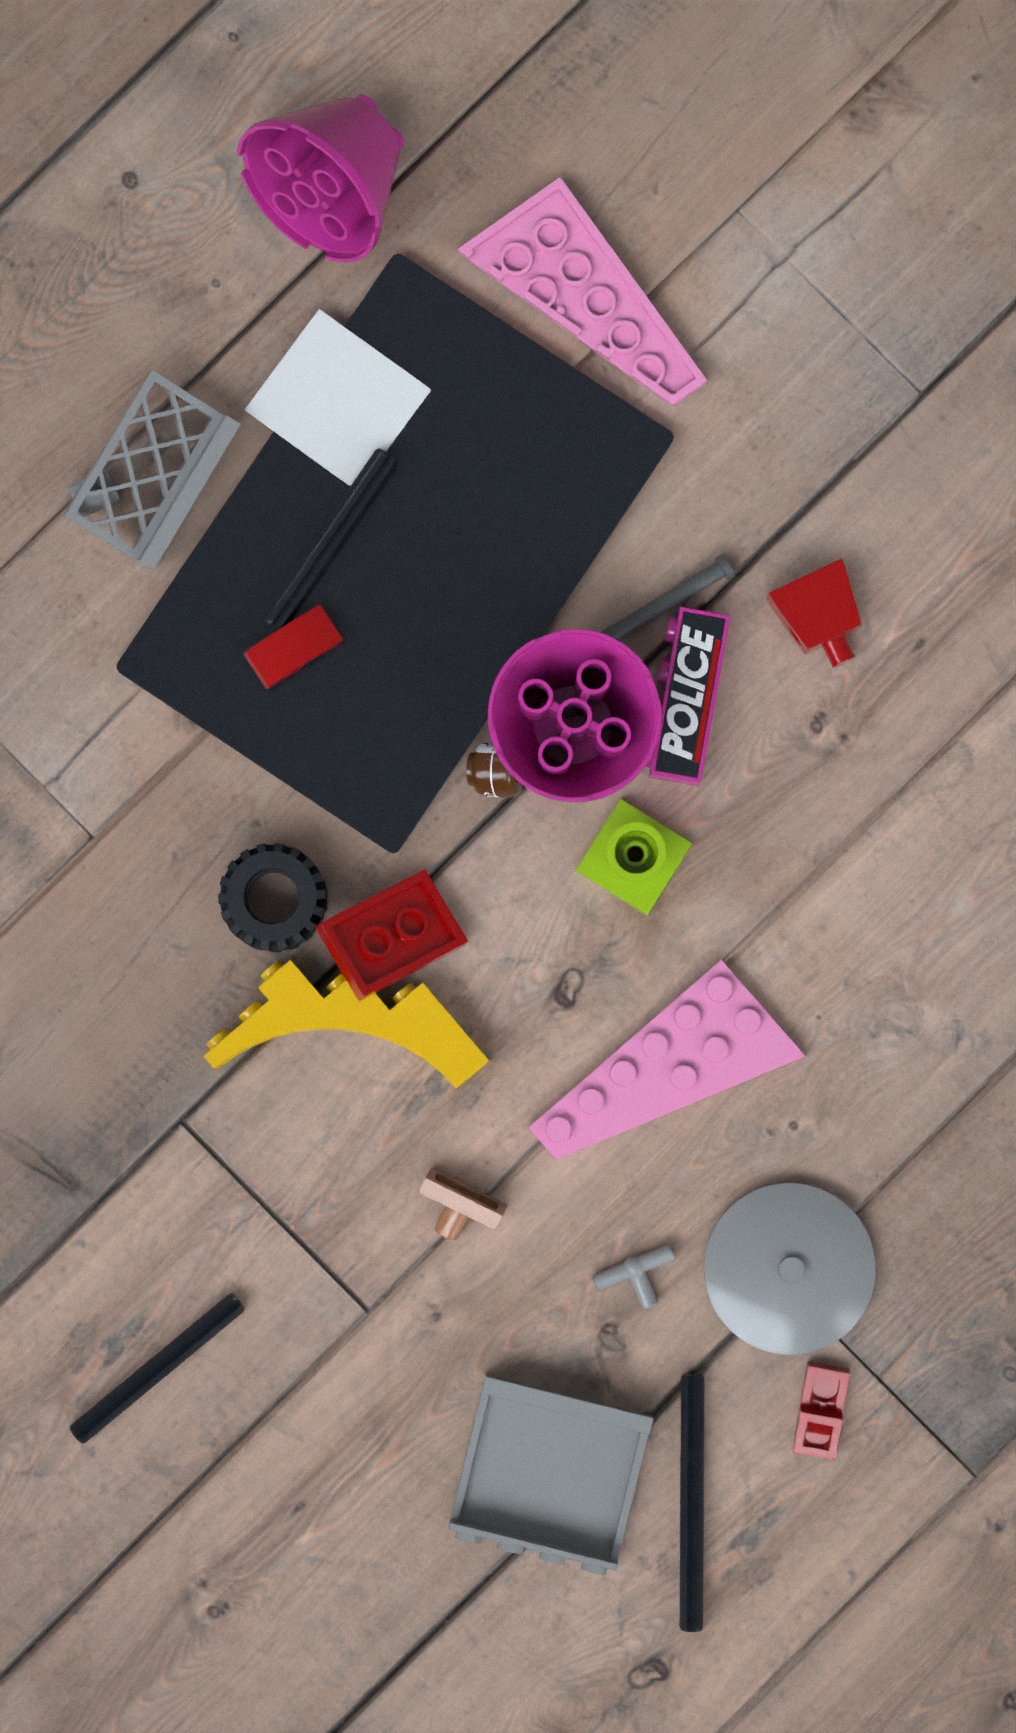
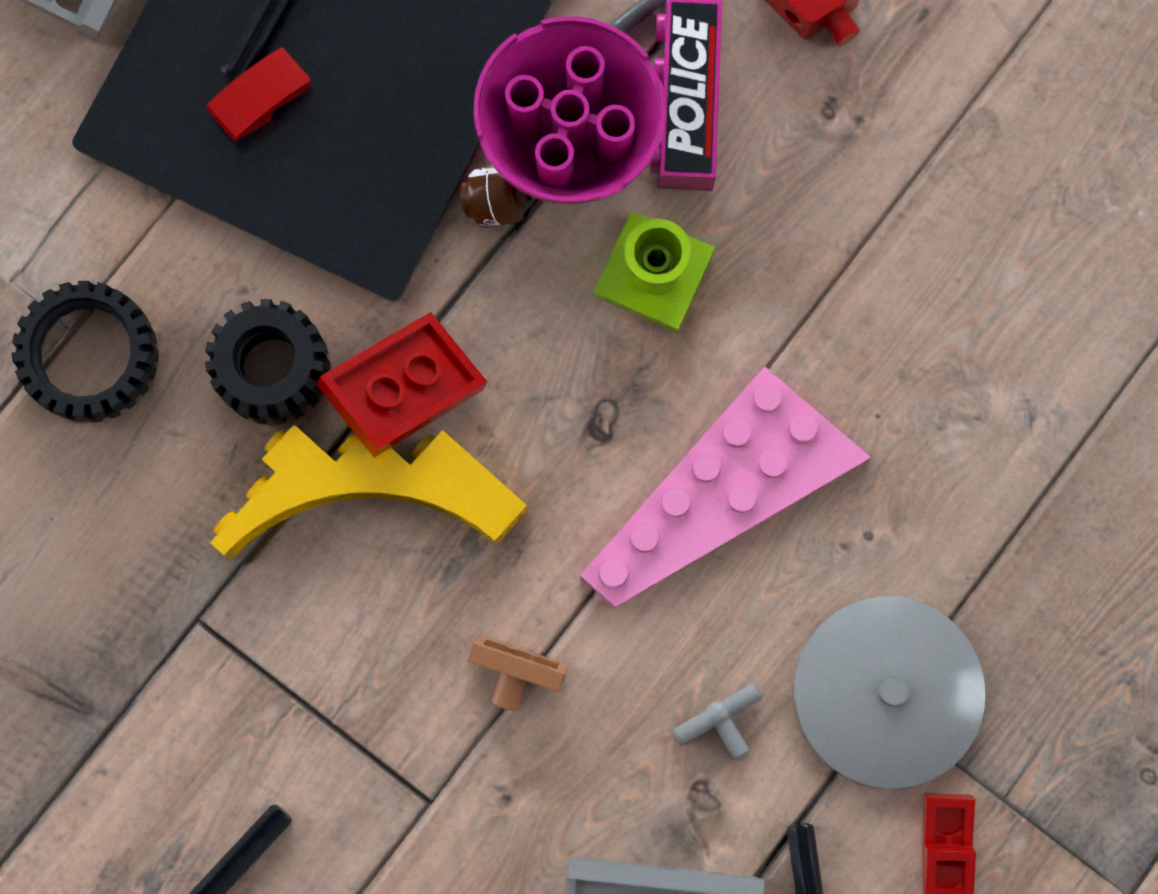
camera: 10 degrees left, 5 degrees down
(62, 842) = (42, 318): none -> black tyre

